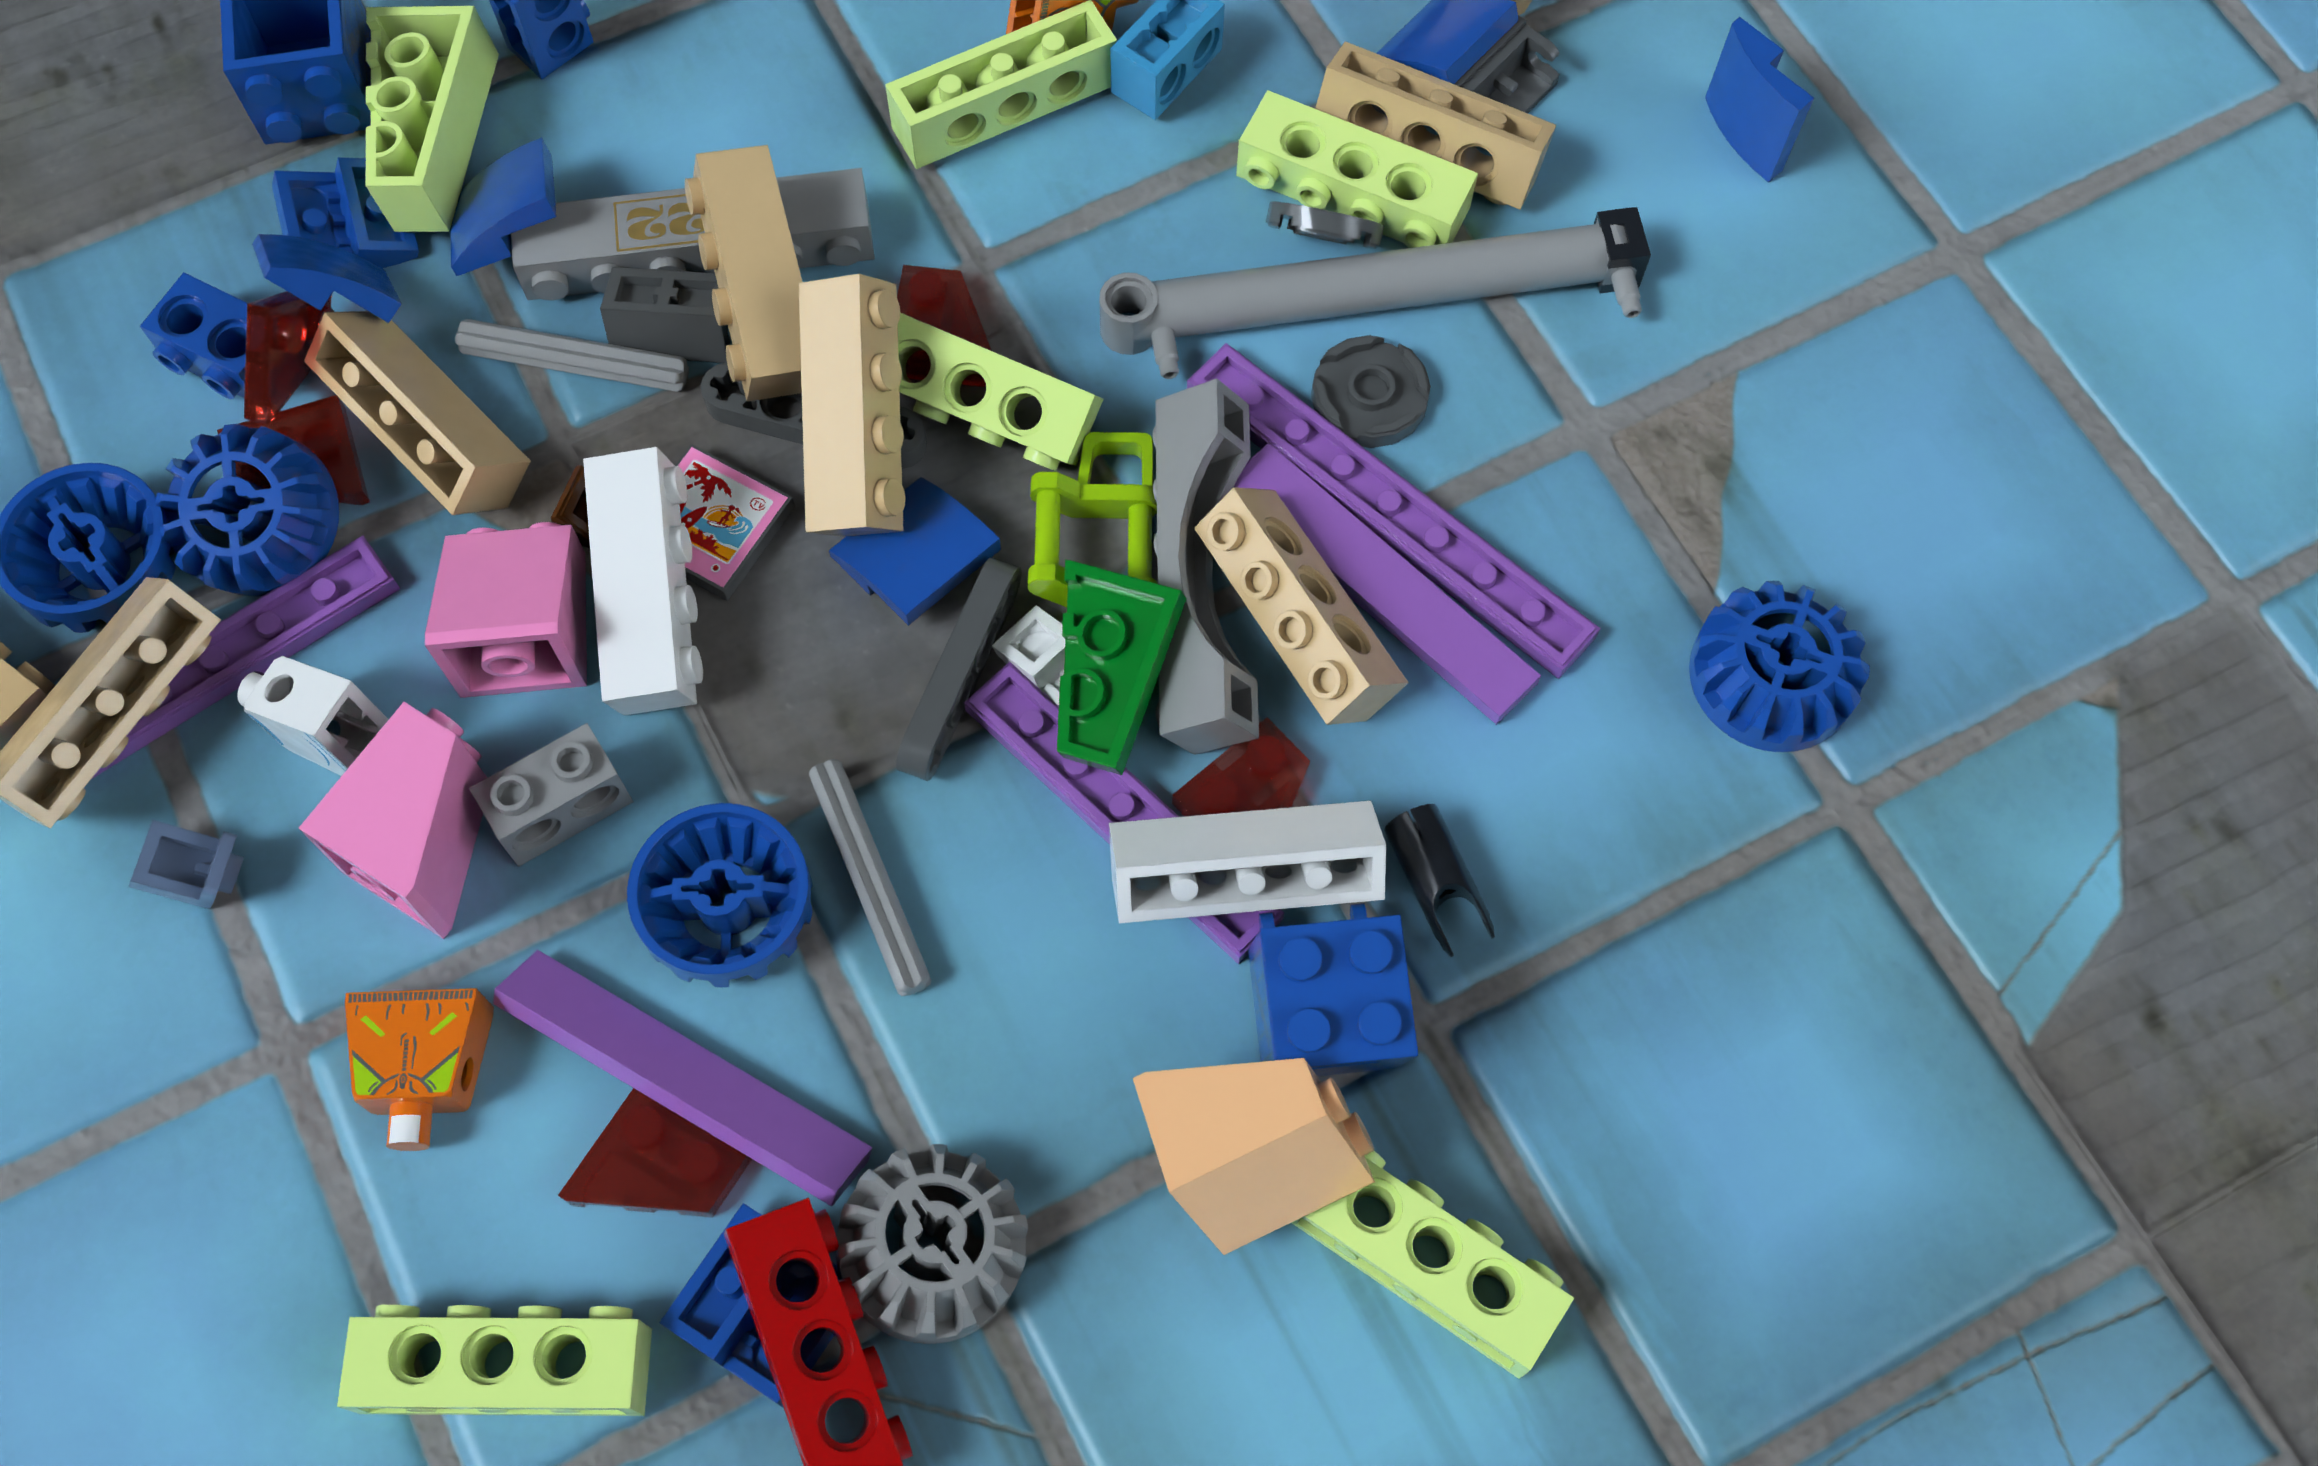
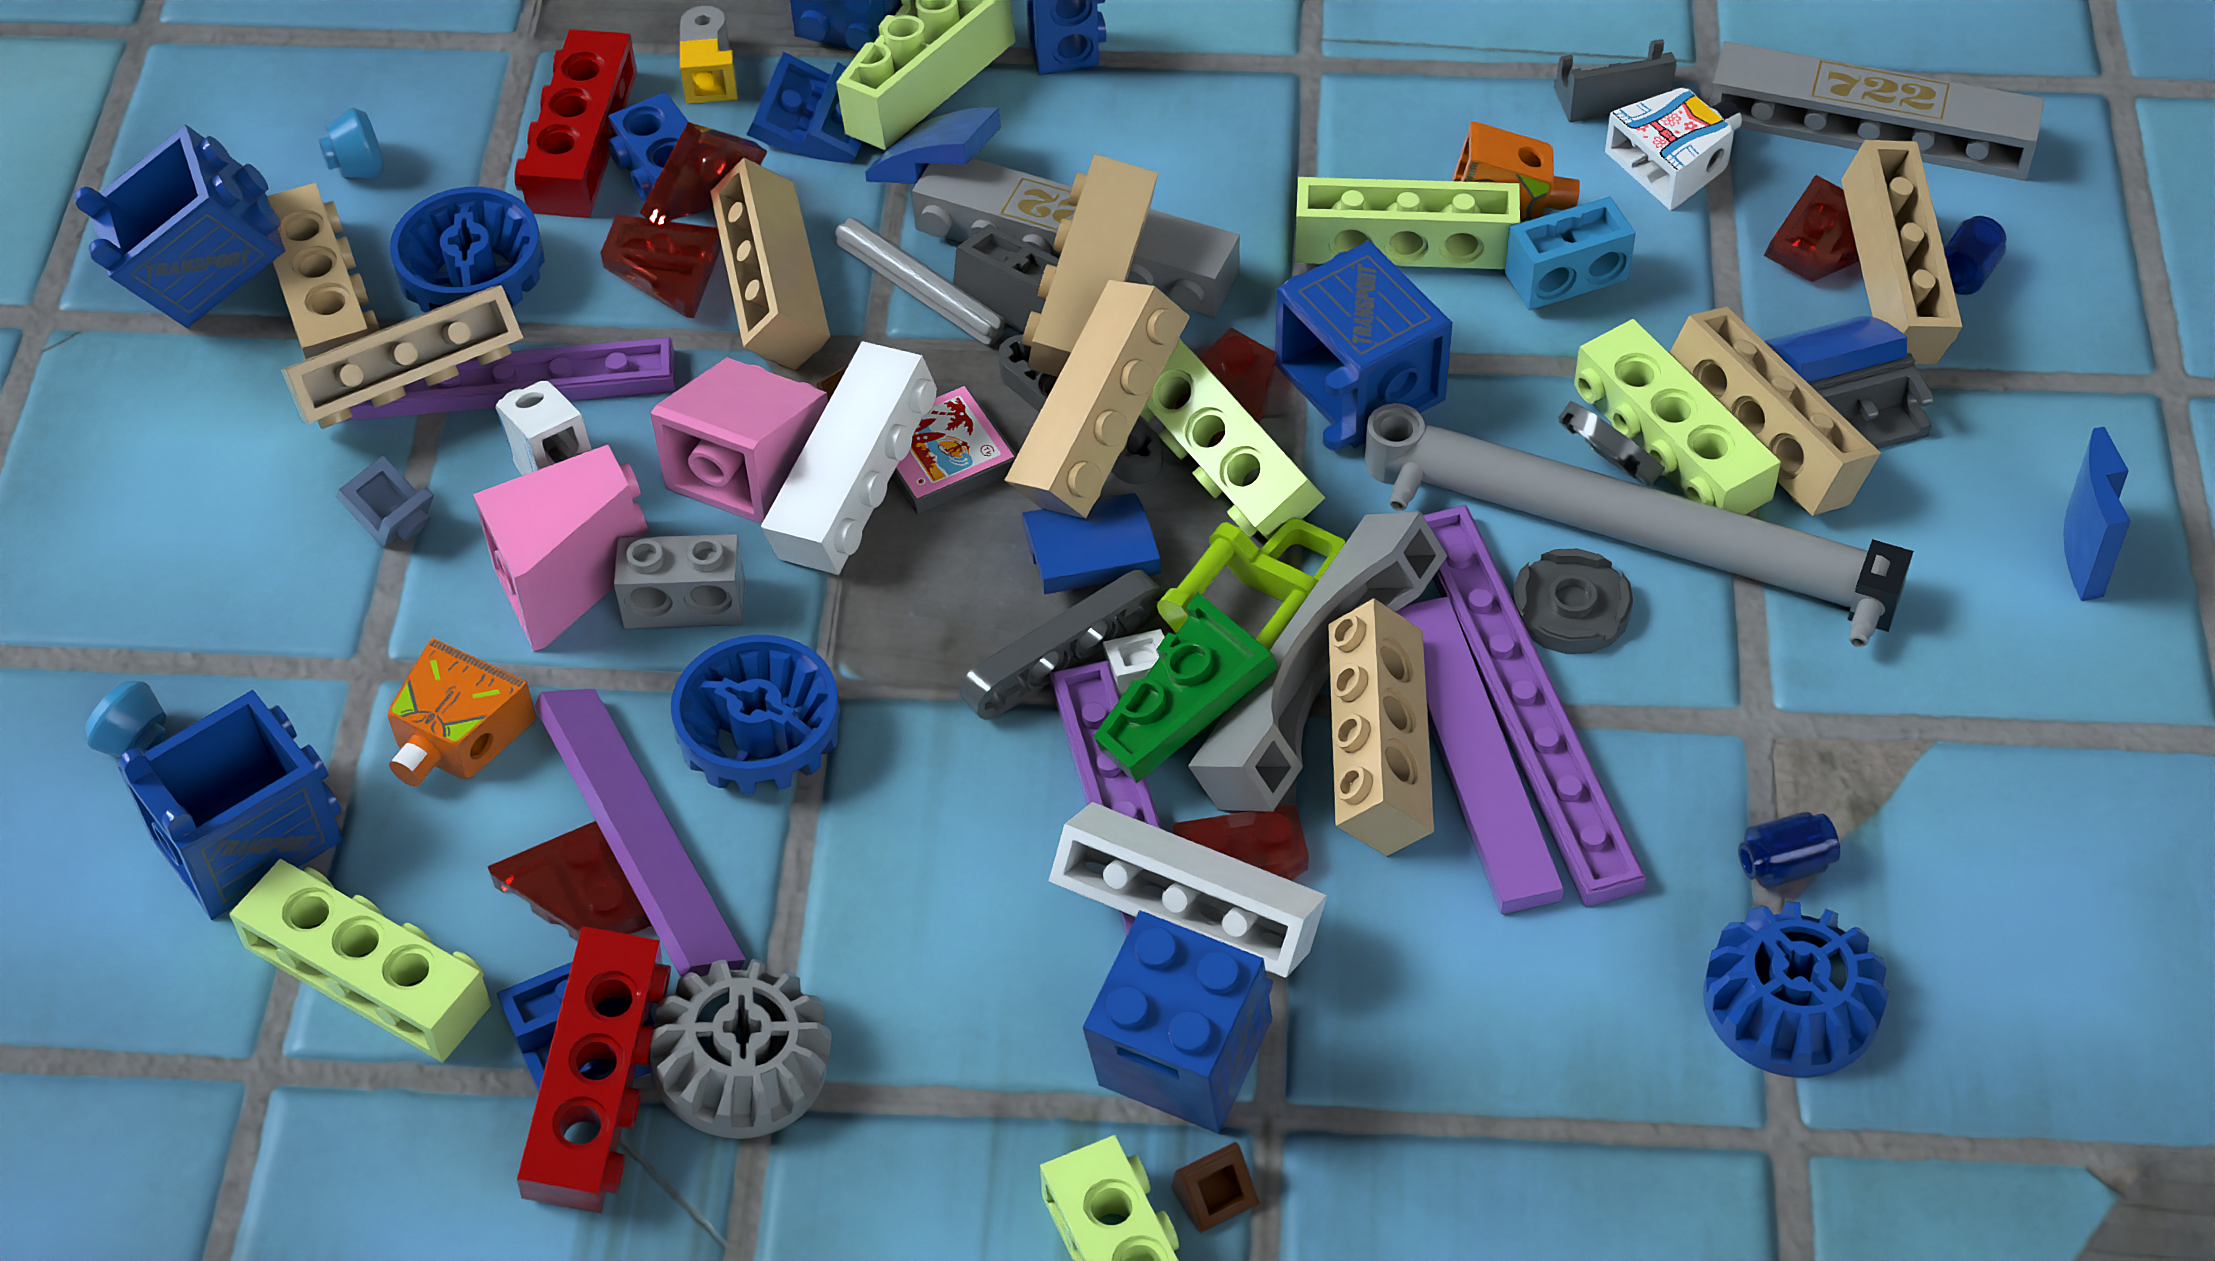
camera: 35 degrees right, 15 degrees down
(73, 1254) = (126, 720): none -> dark azure cone
(103, 346) = (570, 137): none -> red brick
(203, 225) = (706, 57): none -> yellow leg
(245, 1305) = (233, 800): none -> blue container
(287, 528) = (616, 297): blue gear -> none
(318, 269) = (754, 121): blue slope -> none
(870, 878) = (883, 766): light grey axle -> none
(1044, 228) = (1360, 340): none -> blue container
(1253, 1144) = (1031, 1089): light nougat slope -> none
(1432, 1125) = (1215, 1187): none -> reddish brown slope
(1433, 866) = (1357, 988): black piece -> none
(1698, 539) = (1789, 848): none -> clear blue brick

